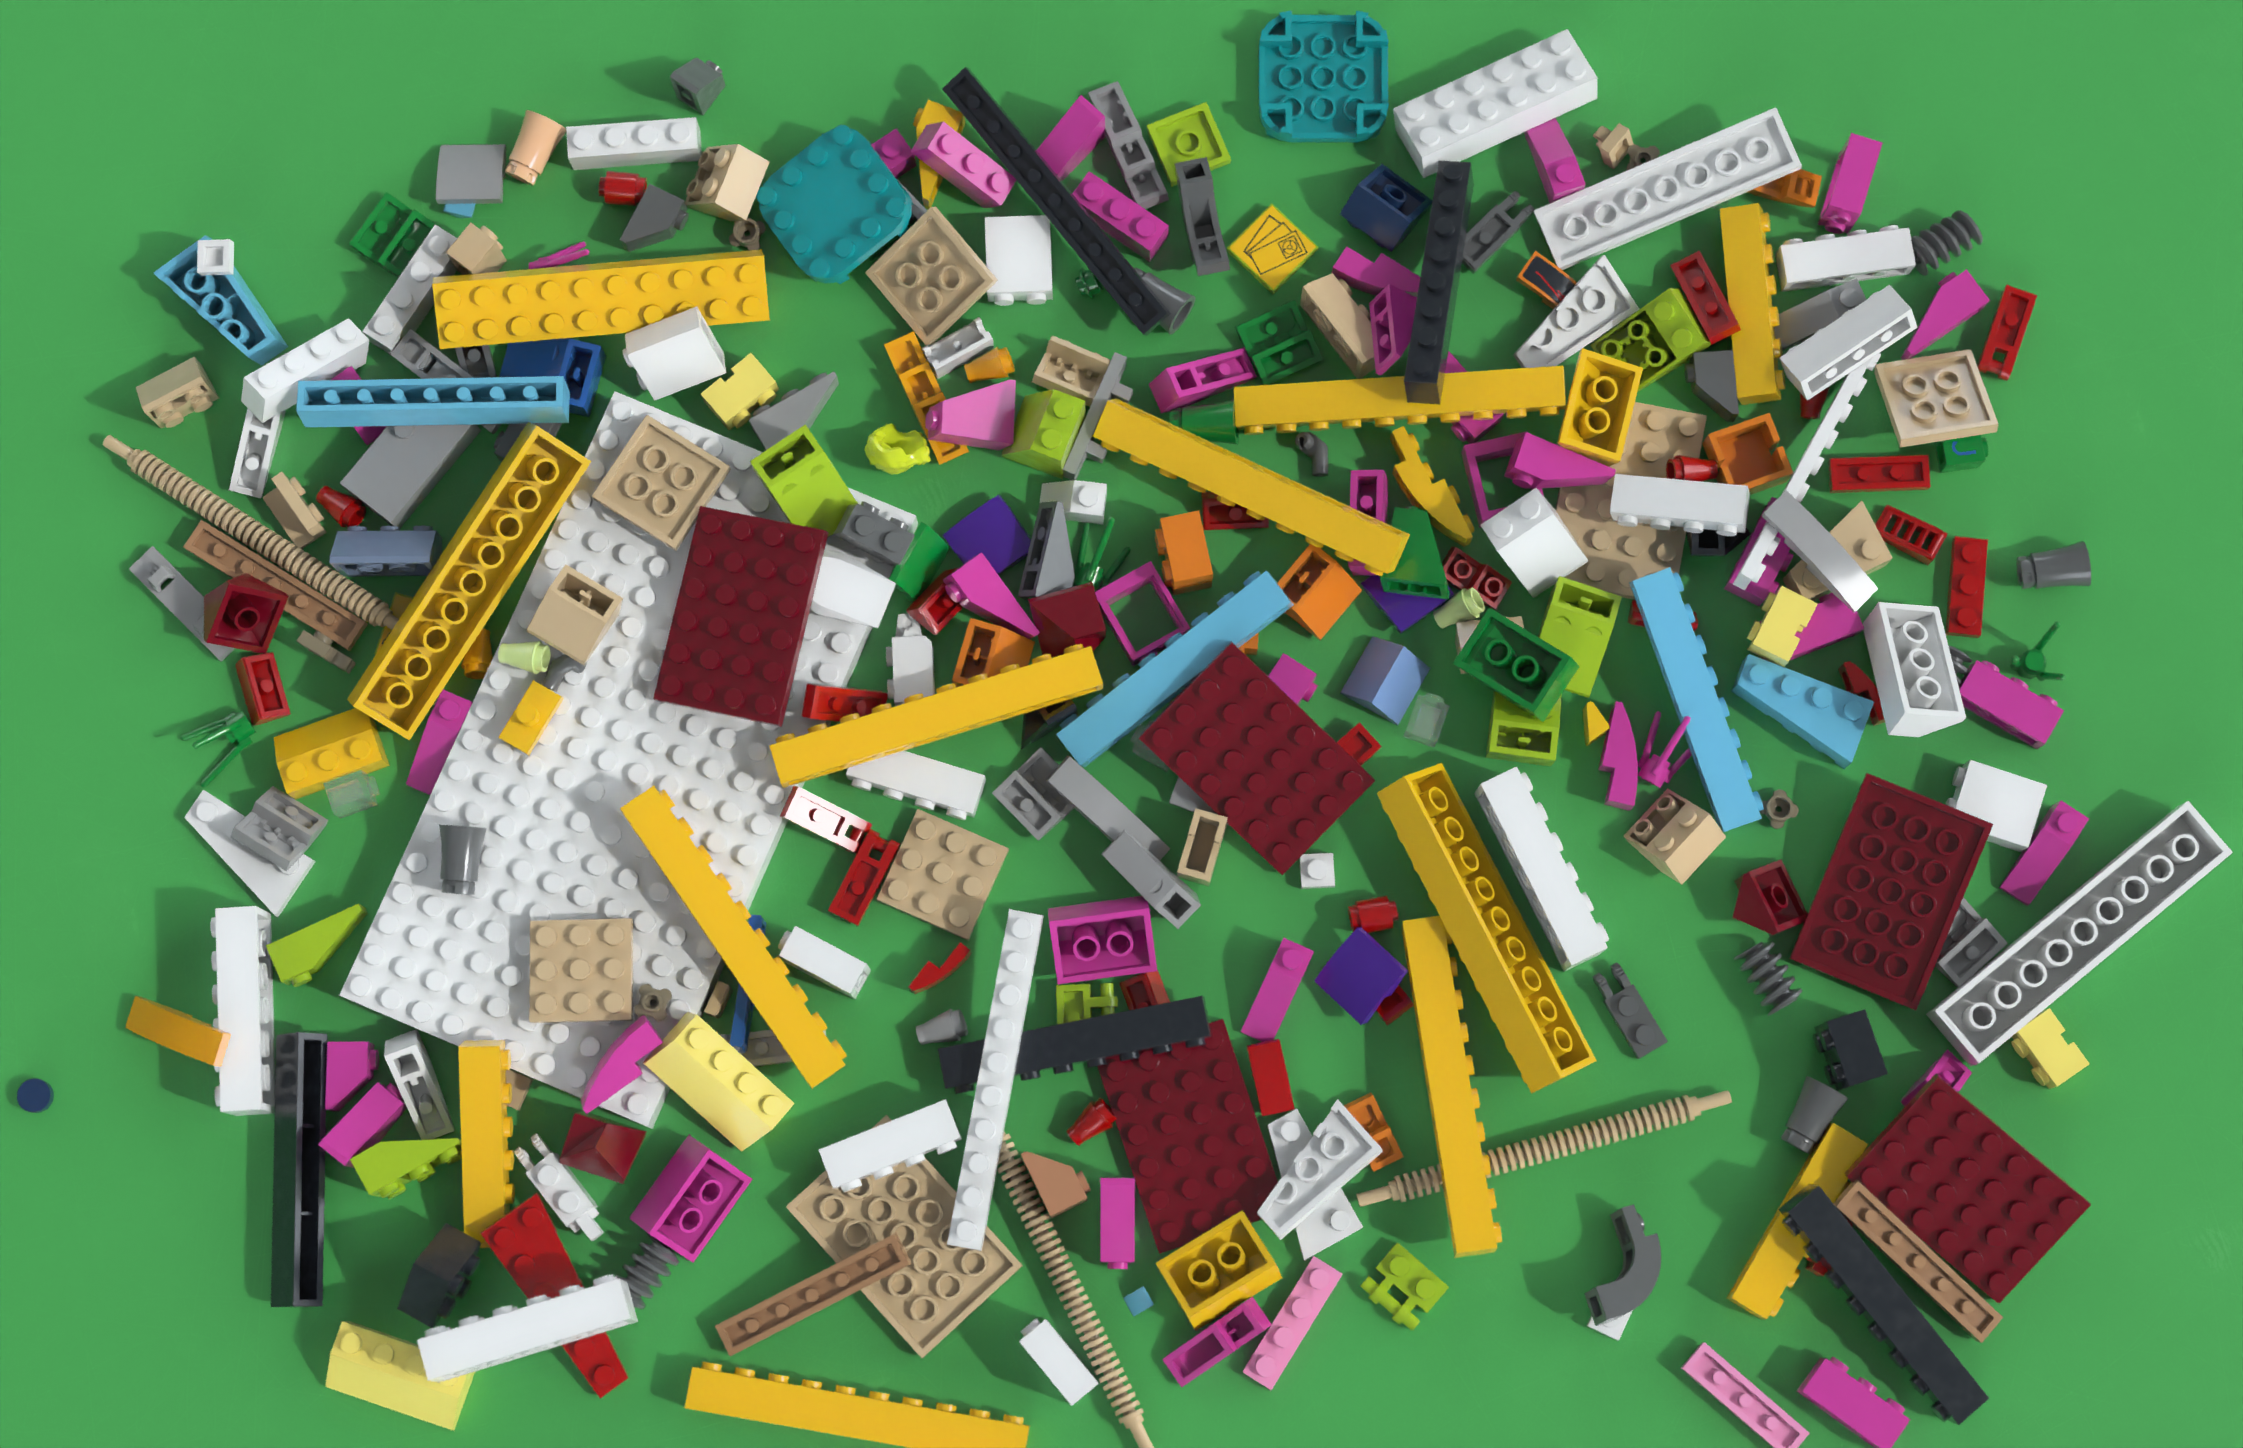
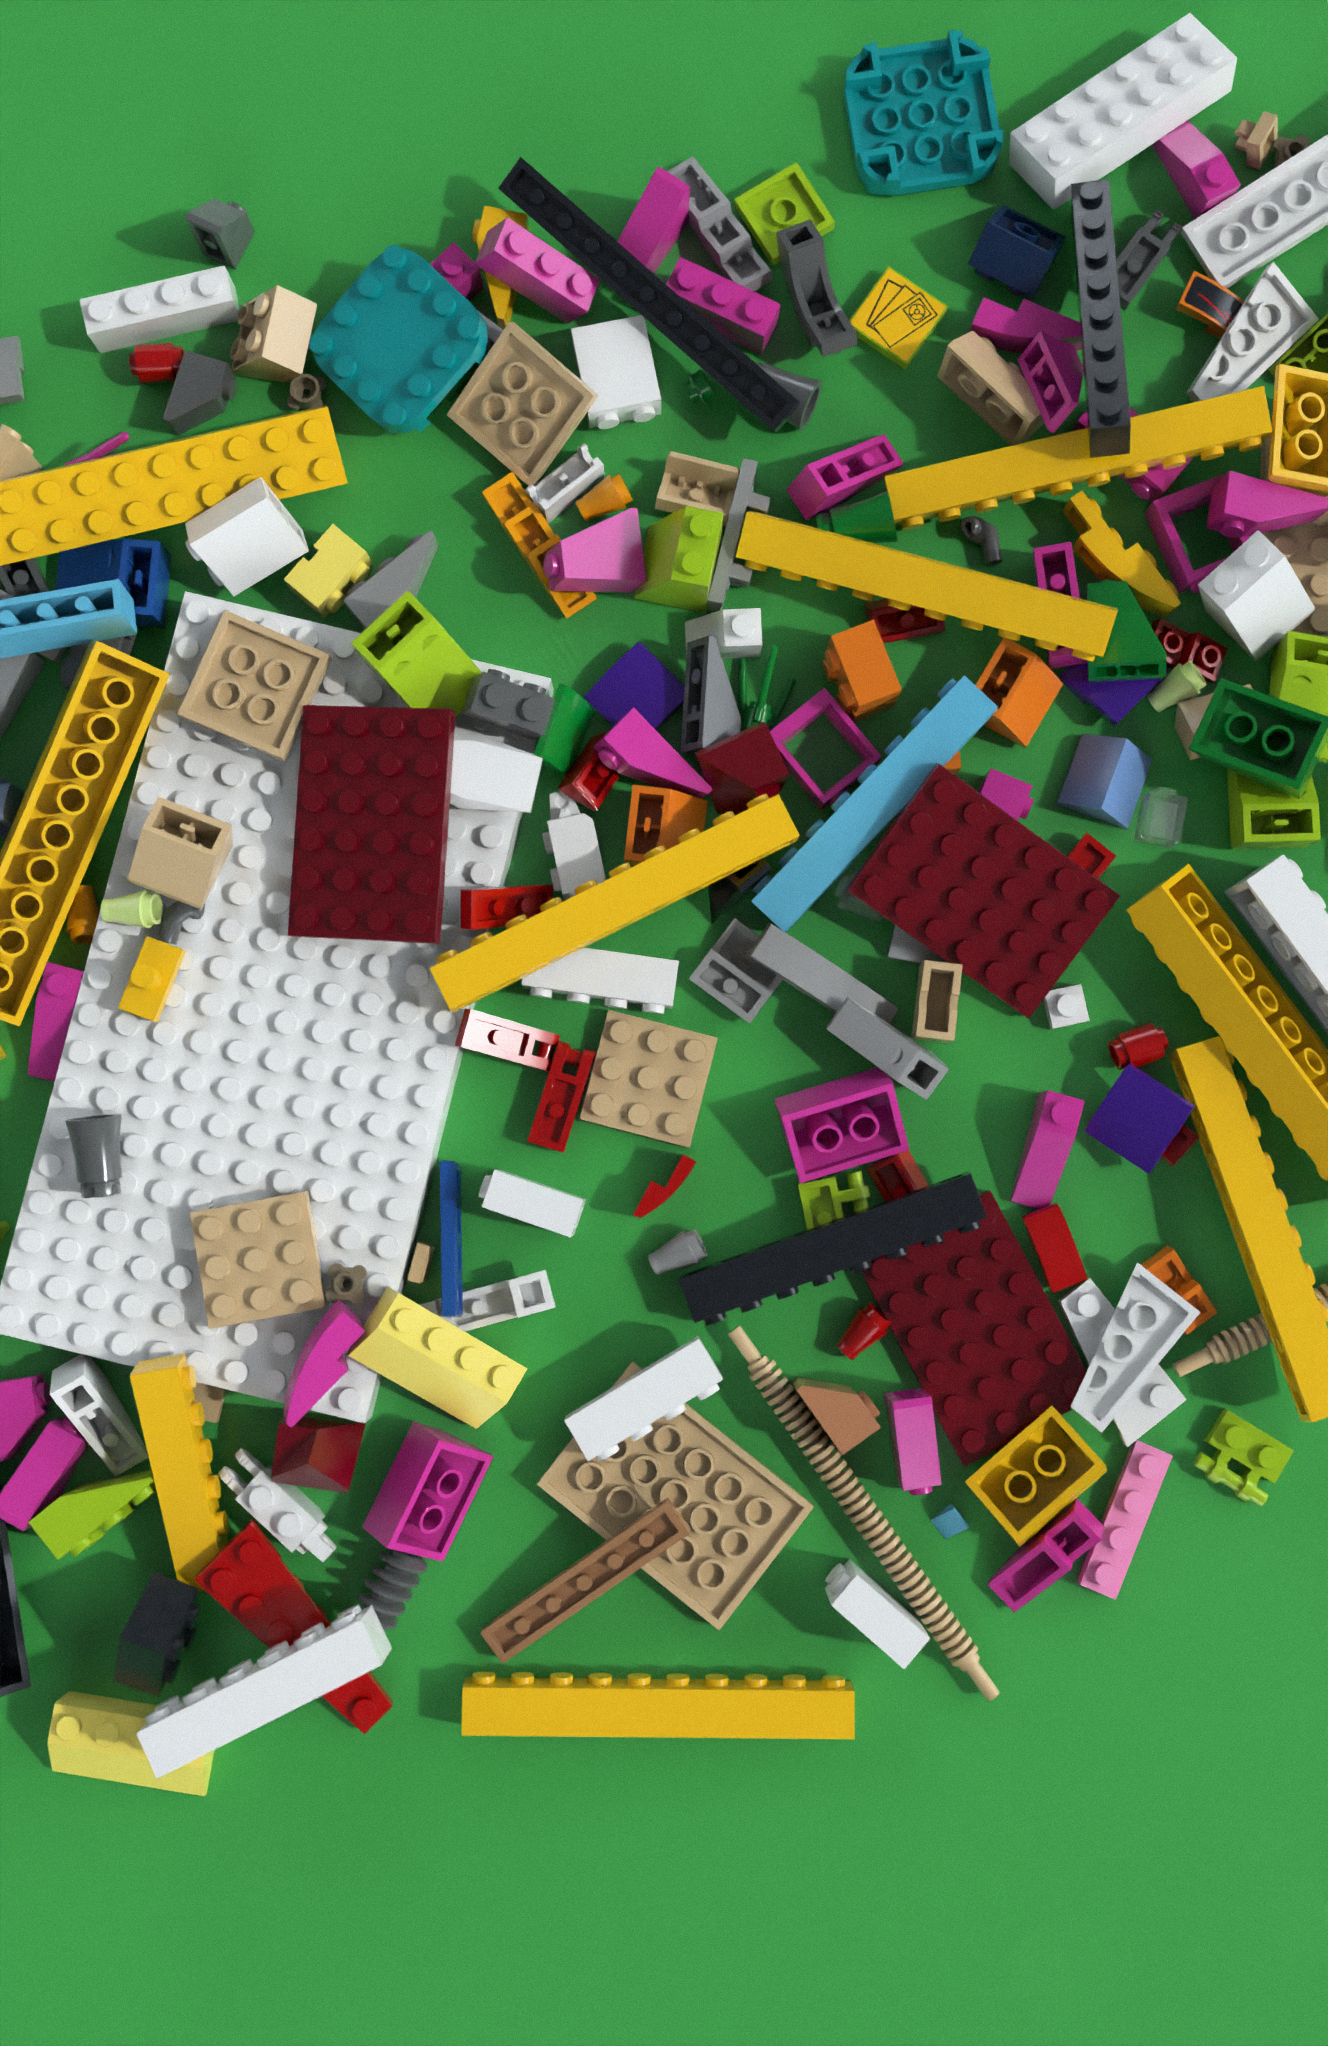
camera: 10 degrees left, 5 degrees up
(533, 147) = (49, 330): light nougat plant -> none
(733, 937) = (424, 1193): yellow brick -> none
(895, 450) = (515, 610): neon yellow hair -> none
(995, 1080) = (750, 1305): white plate -> none
(1278, 343) = (922, 421): green slope -> none

